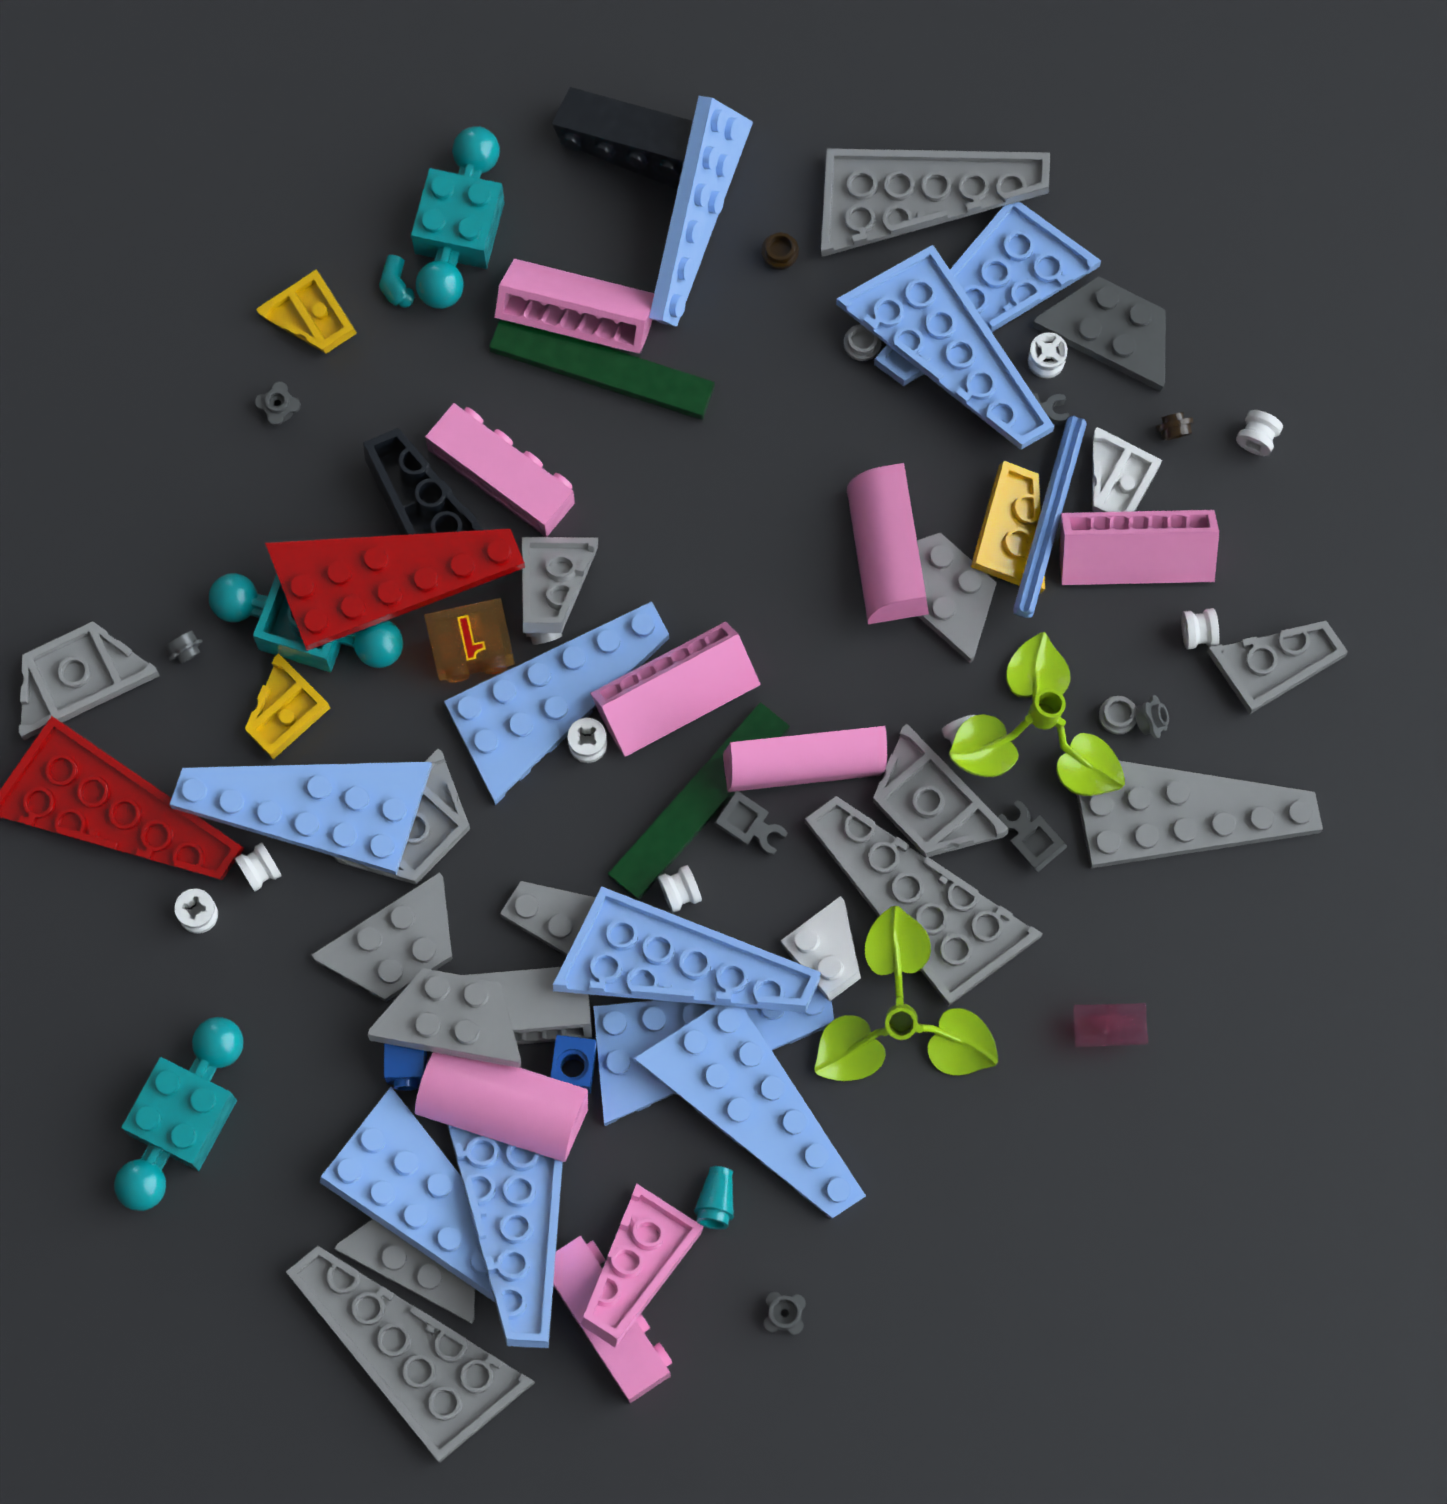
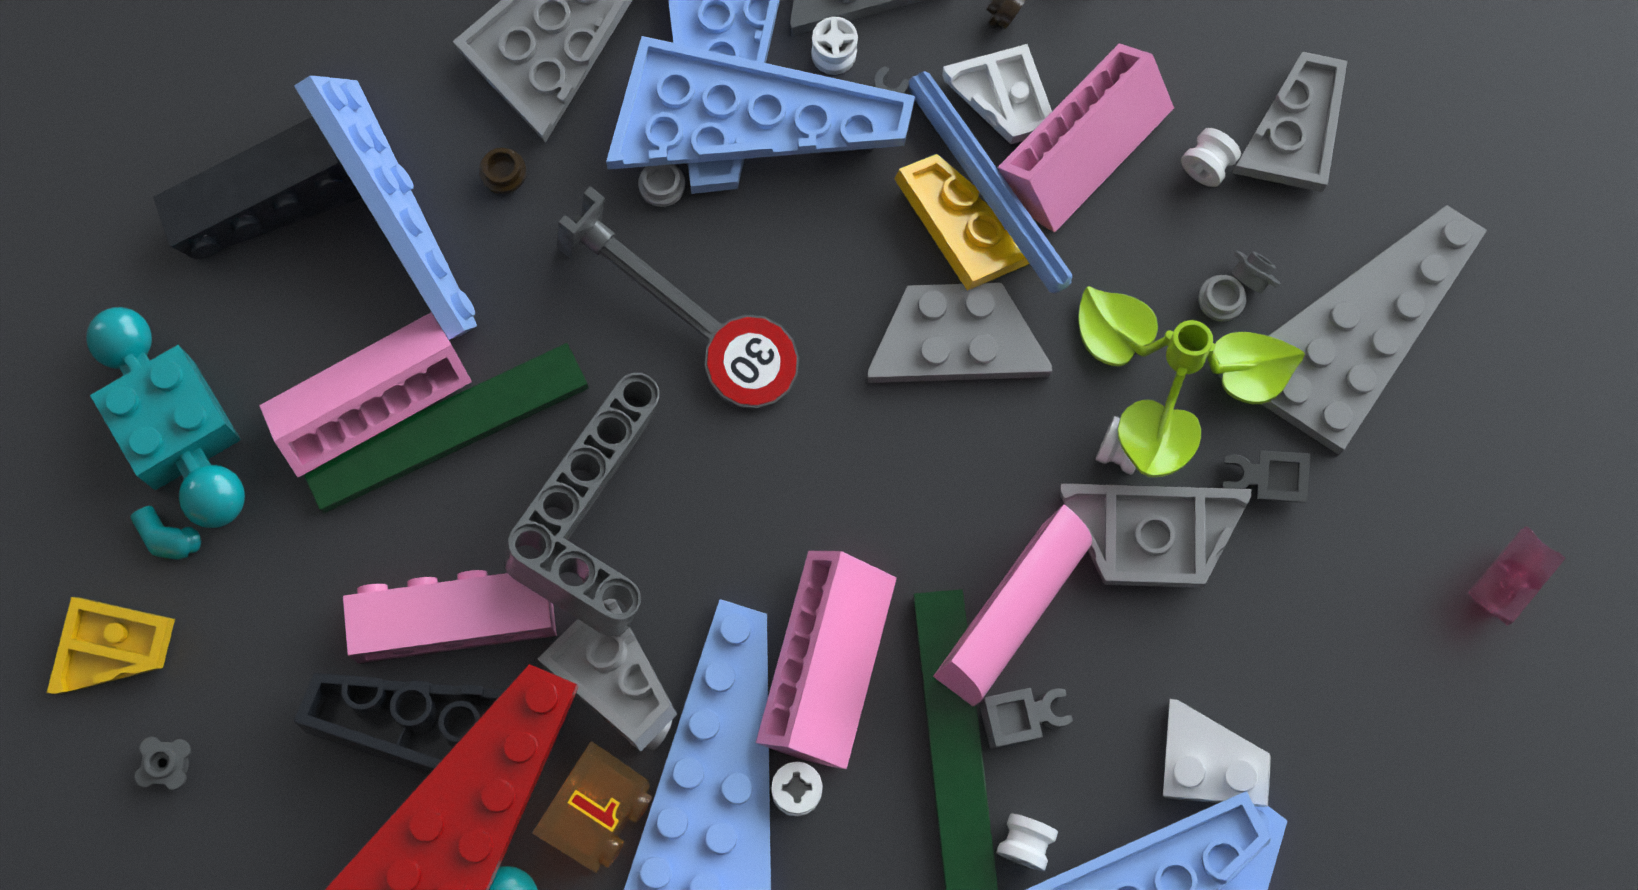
camera: 50 degrees left, 0 degrees up
(627, 471) = (576, 499): none -> dark grey beam
(806, 486) = (746, 358): none -> piece
(850, 1048) = (1410, 727): lime plant -> none
(886, 545) = (880, 339): bright pink brick -> none
(965, 928) = (1266, 631): light grey wing -> none

